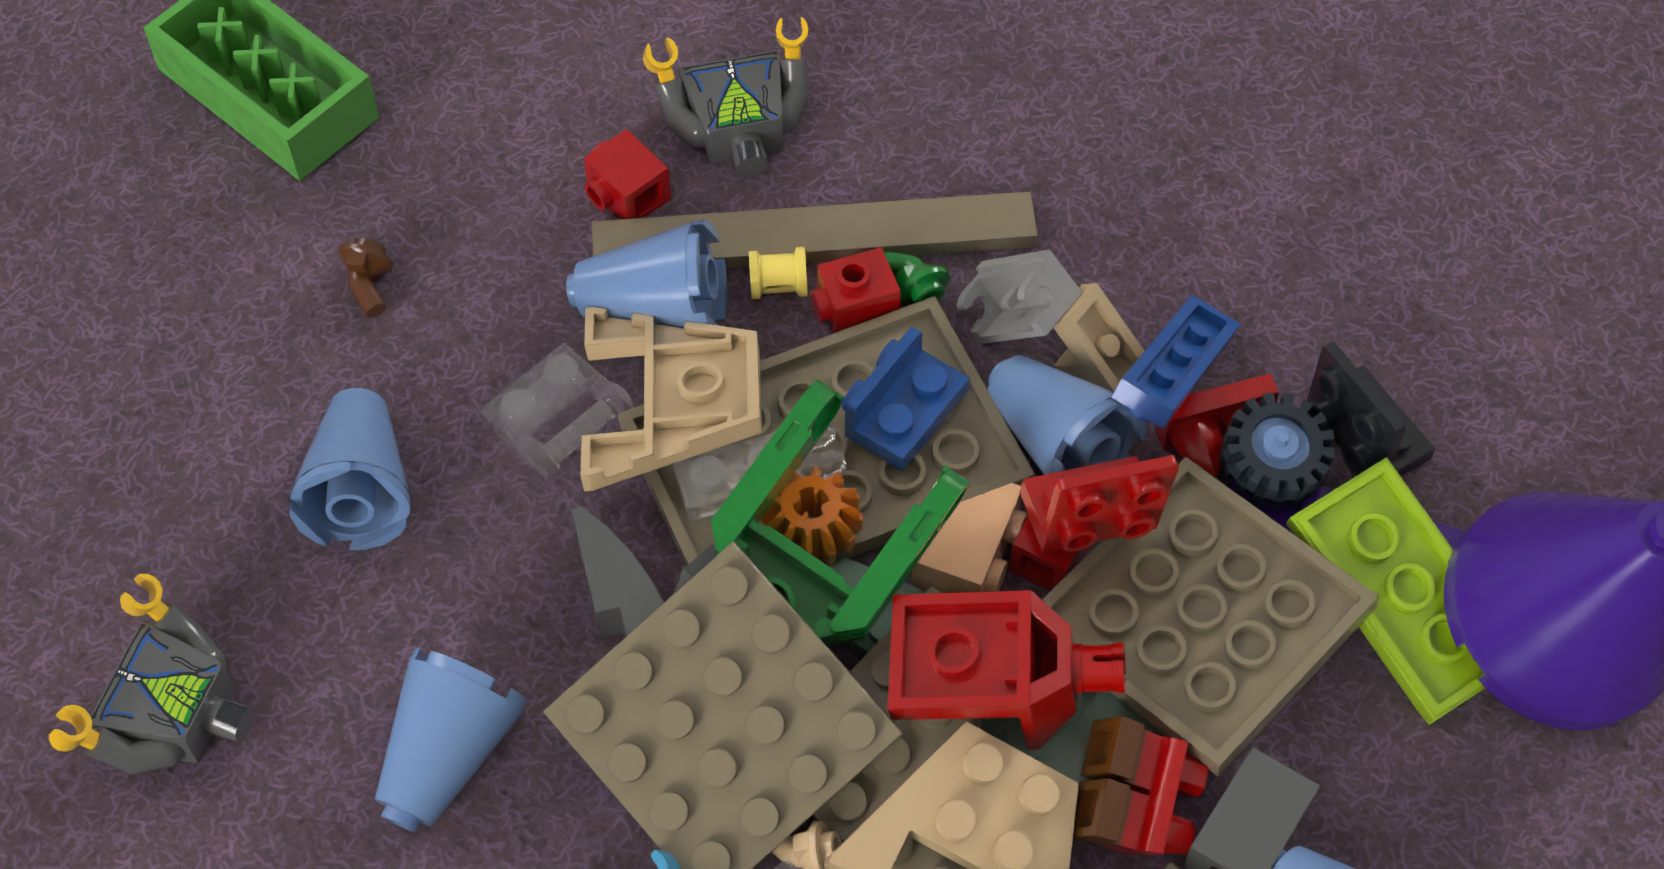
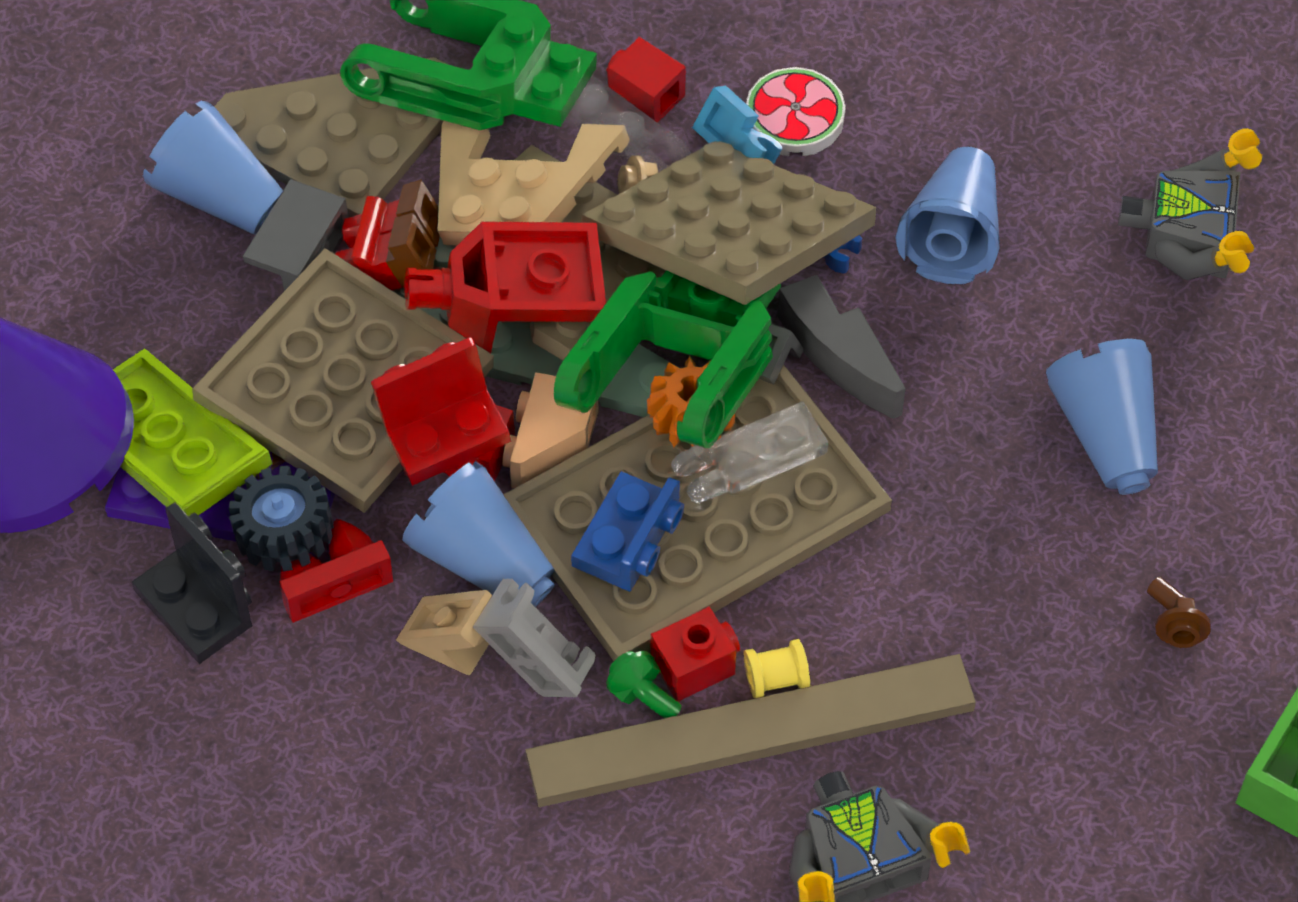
camera: 170 degrees right, 0 degrees up
(544, 399) = (967, 524): clear plate -> none
(626, 177) = (954, 747): red brick -> none
(656, 276) = (889, 623): medium blue cone -> none
(697, 393) = (823, 512): tan wing -> none
(1175, 362) = (376, 586): blue plate -> none

